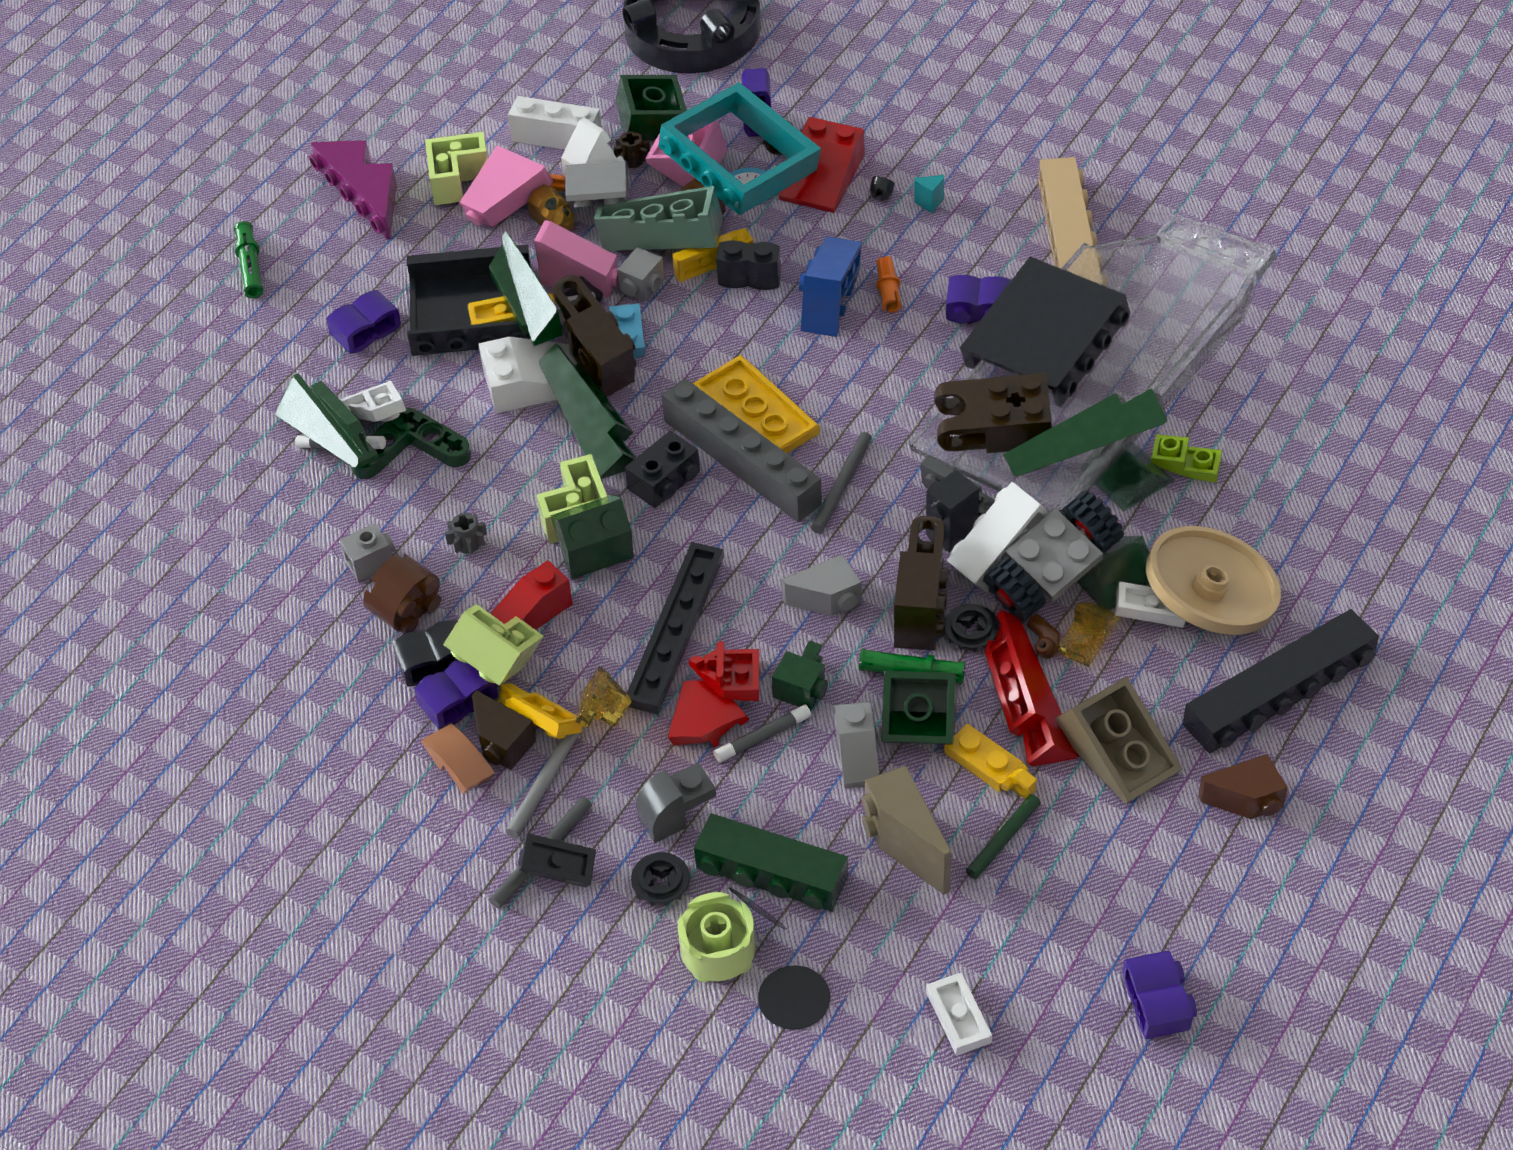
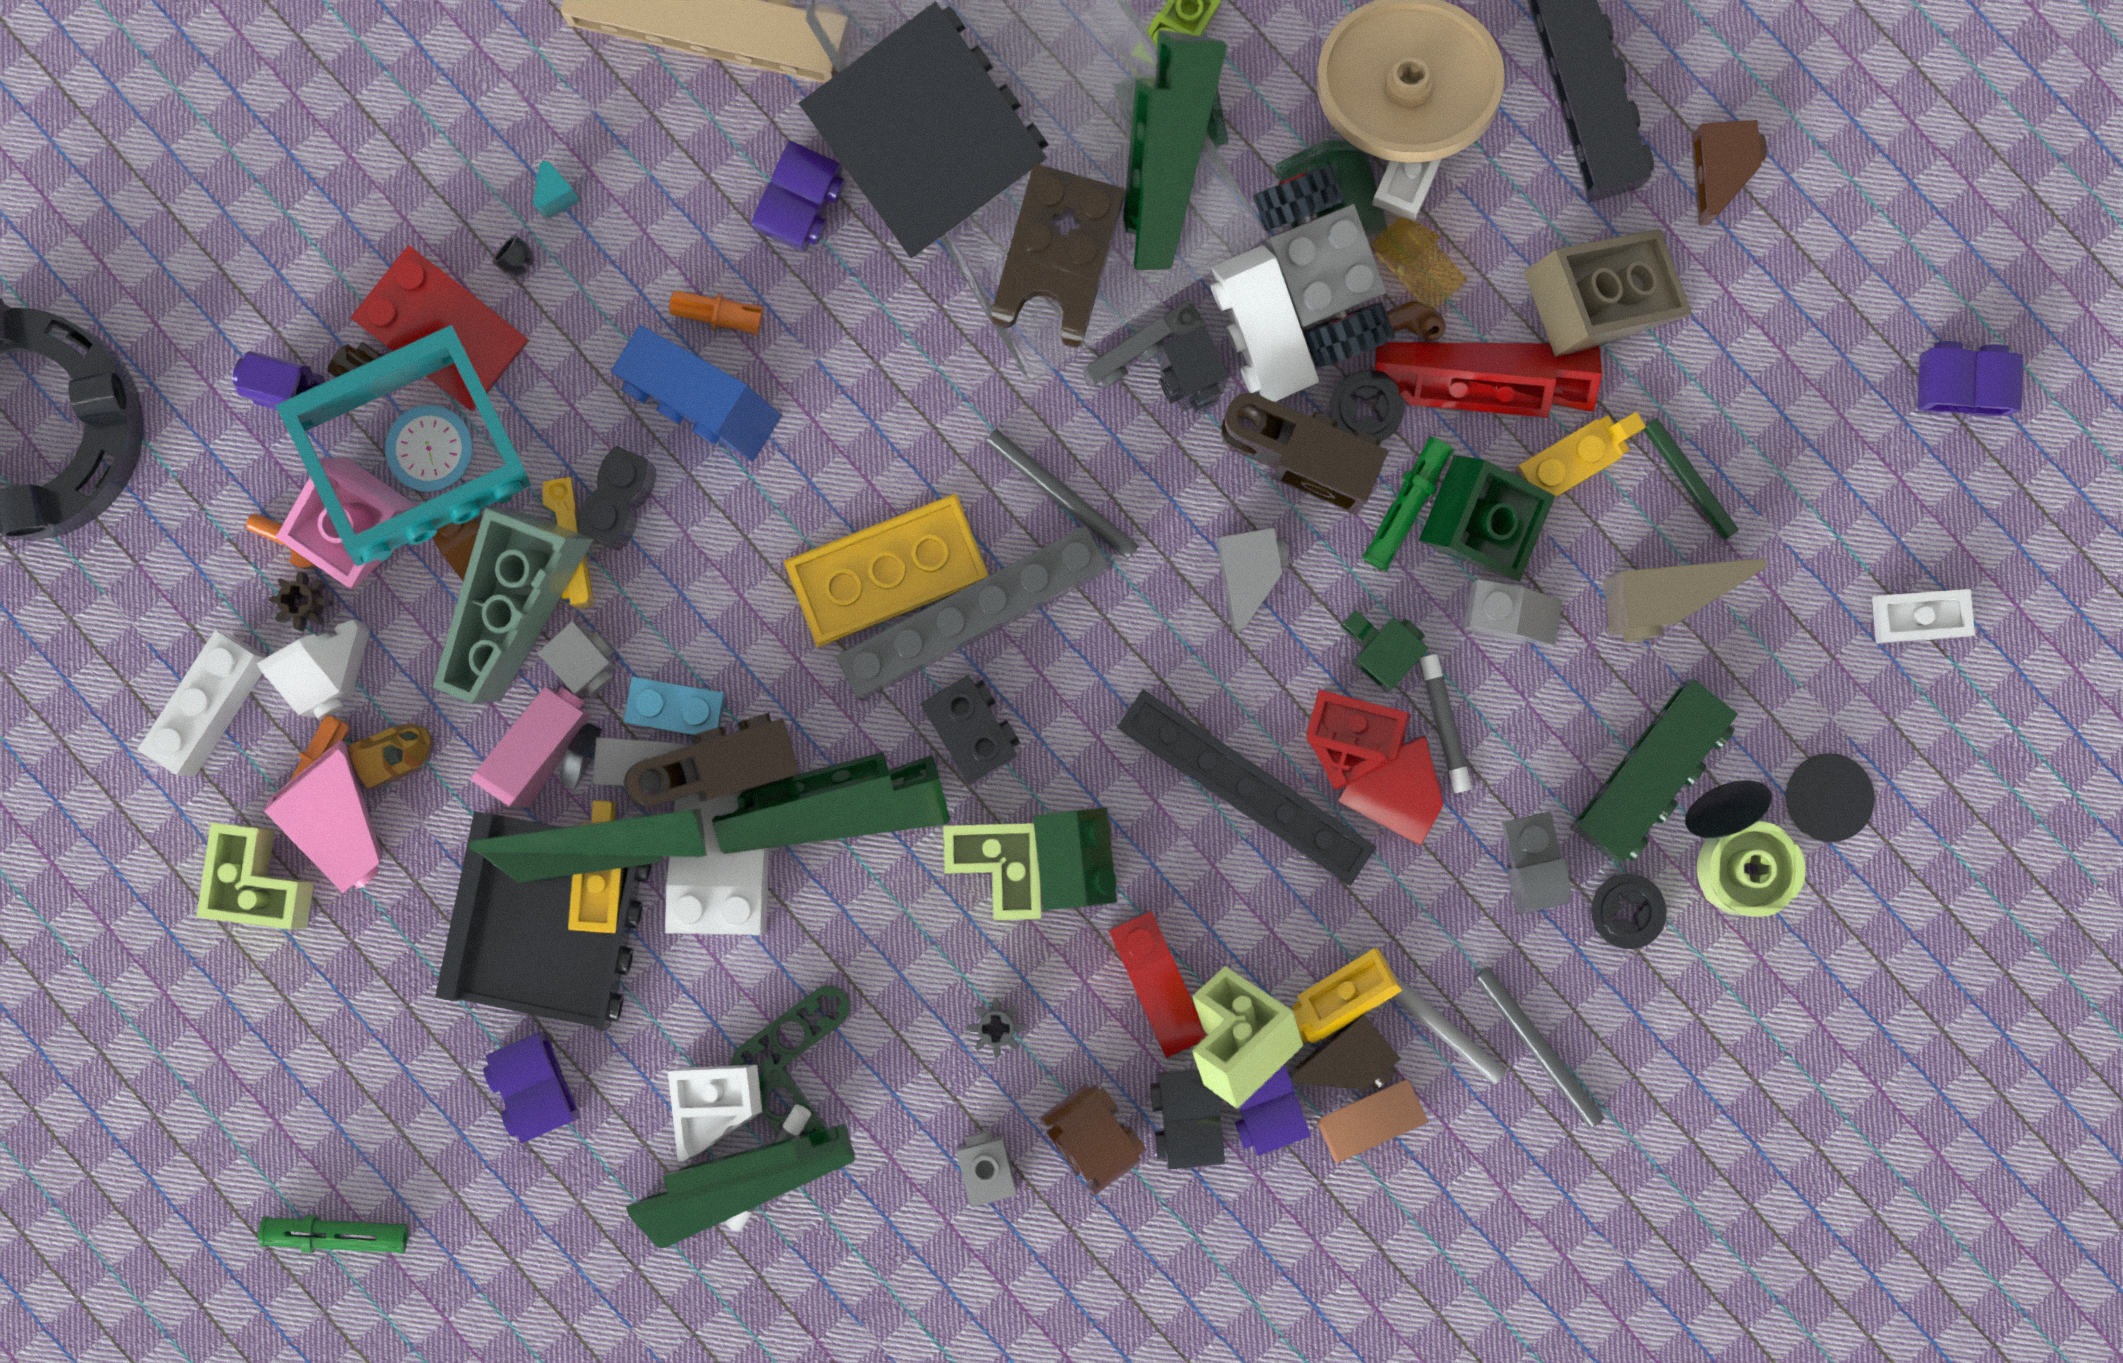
camera: 75 degrees left, 35 degrees up
(364, 184) = (237, 1022): magenta slope -> none
(557, 860) = (1579, 1035): black plate -> none
(596, 181) = (388, 677): light grey slope -> none
(602, 700) = (1344, 919): clear yellow slope -> none
(648, 102) = (220, 547): dark green slope -> none

